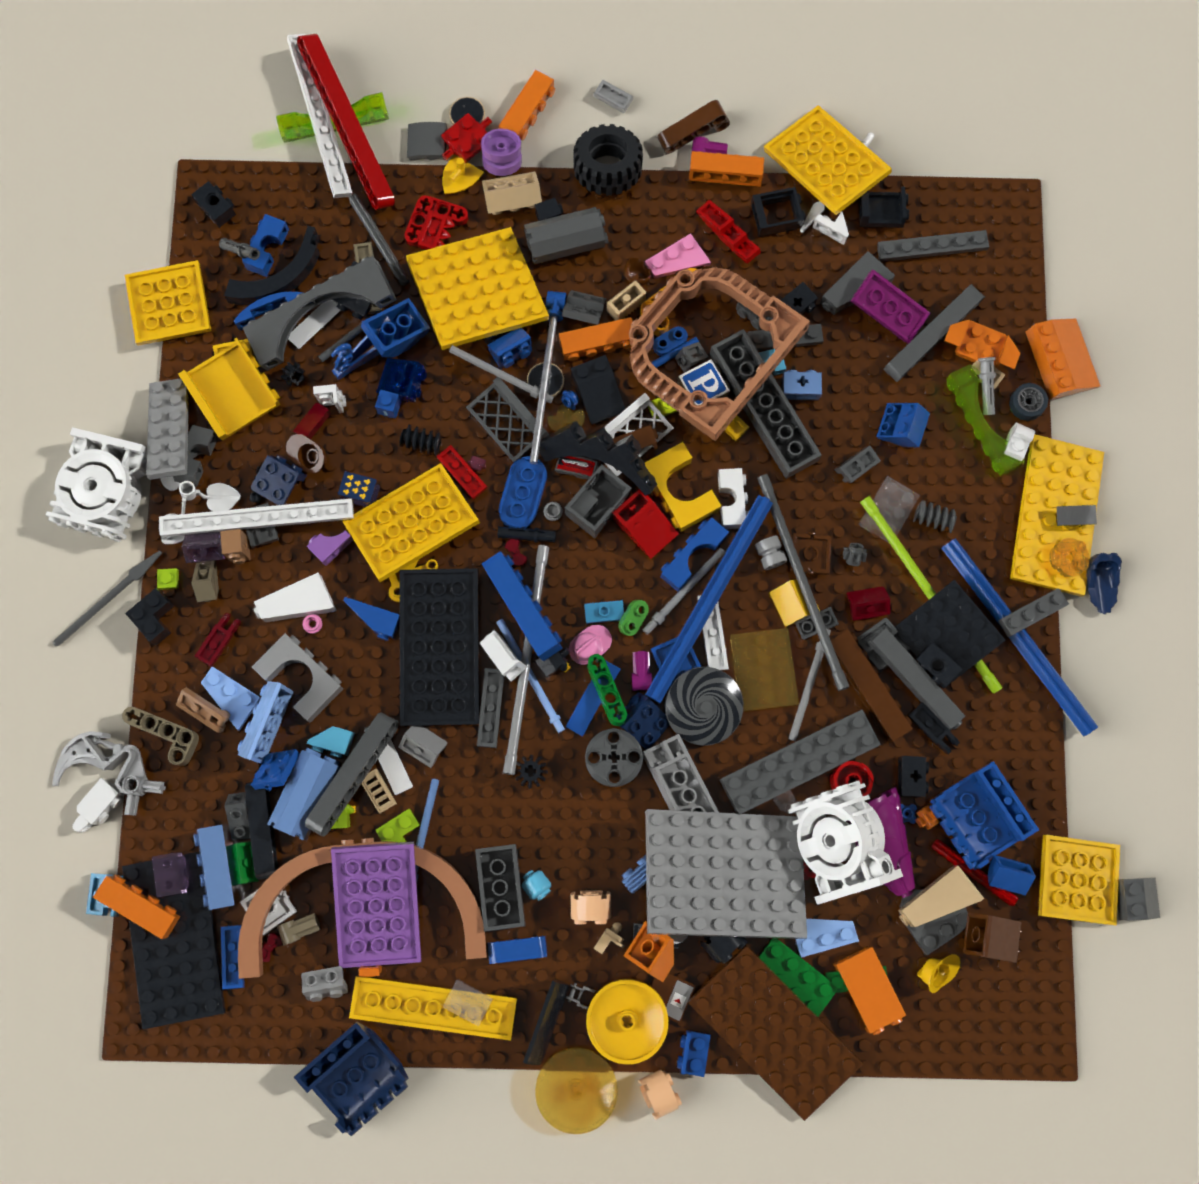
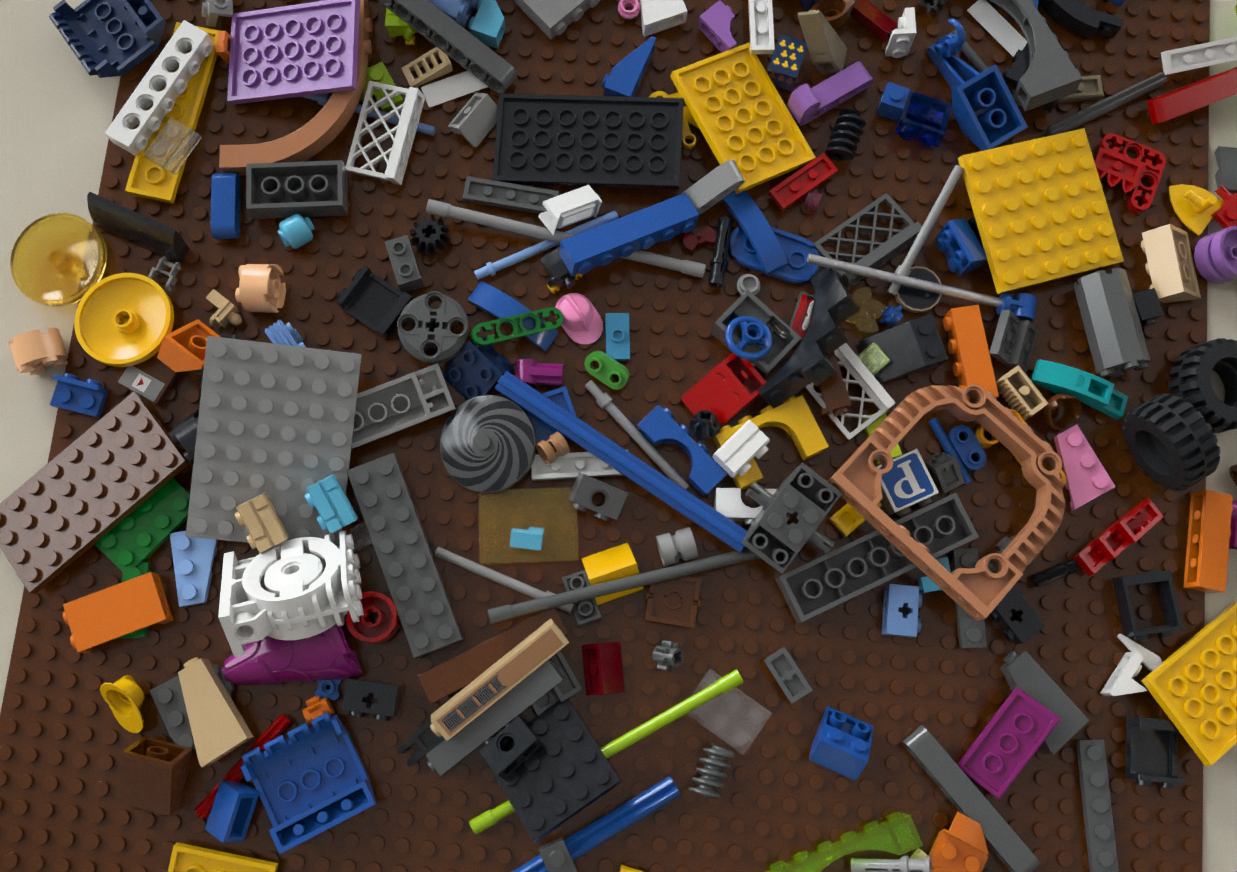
camera: 90 degrees right, 0 degrees up
(344, 459) = (823, 43): none -> dark tan slope
(368, 1002) = (158, 76): none -> white brick
(383, 454) = (810, 103): none -> medium lavender beam
(445, 802) = (404, 131): none -> white fence
(476, 539) = (715, 186): none -> light grey beam
(507, 506) = (757, 230): none -> blue slope
(558, 789) = (404, 264): none -> dark grey brick
(592, 811) = (373, 302): none -> black panel
(604, 494) = (753, 327): none -> blue piece
(607, 411) = (874, 358): none -> yellowish green tile
(617, 259) = (1085, 386): none -> teal slope
(660, 192) = (1171, 442): none -> black tyre
(675, 536) = (704, 425): none -> black gear
(693, 505) = (741, 449): none -> white brick
(704, 652) = (552, 448): none -> medium nougat wheel
(732, 623) = (611, 502): none -> dark grey brick
(760, 276) = (1054, 573): none -> black axle
(761, 473) = (808, 499): none -> dark grey slope
(769, 821) = (331, 504): none -> medium azure brick
(780, 663) = (528, 538): none -> medium azure piece
(790, 874) = (261, 522): none -> tan brick
(890, 677) = (498, 680): none -> brick

